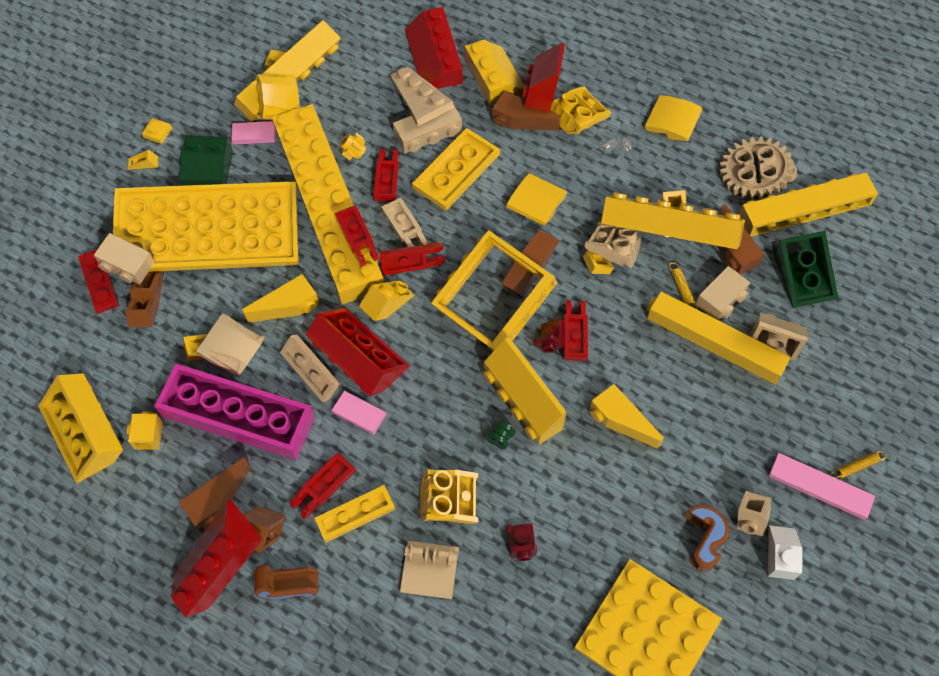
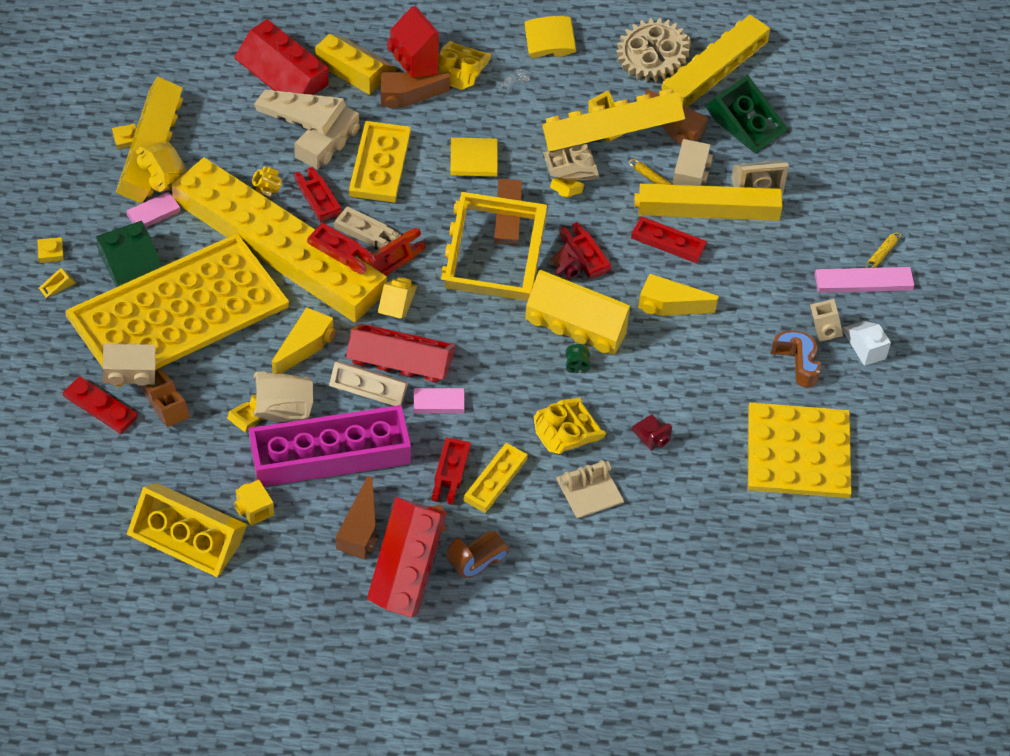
camera: 35 degrees left, 10 degrees down
(658, 356) = (669, 239): none -> red plate

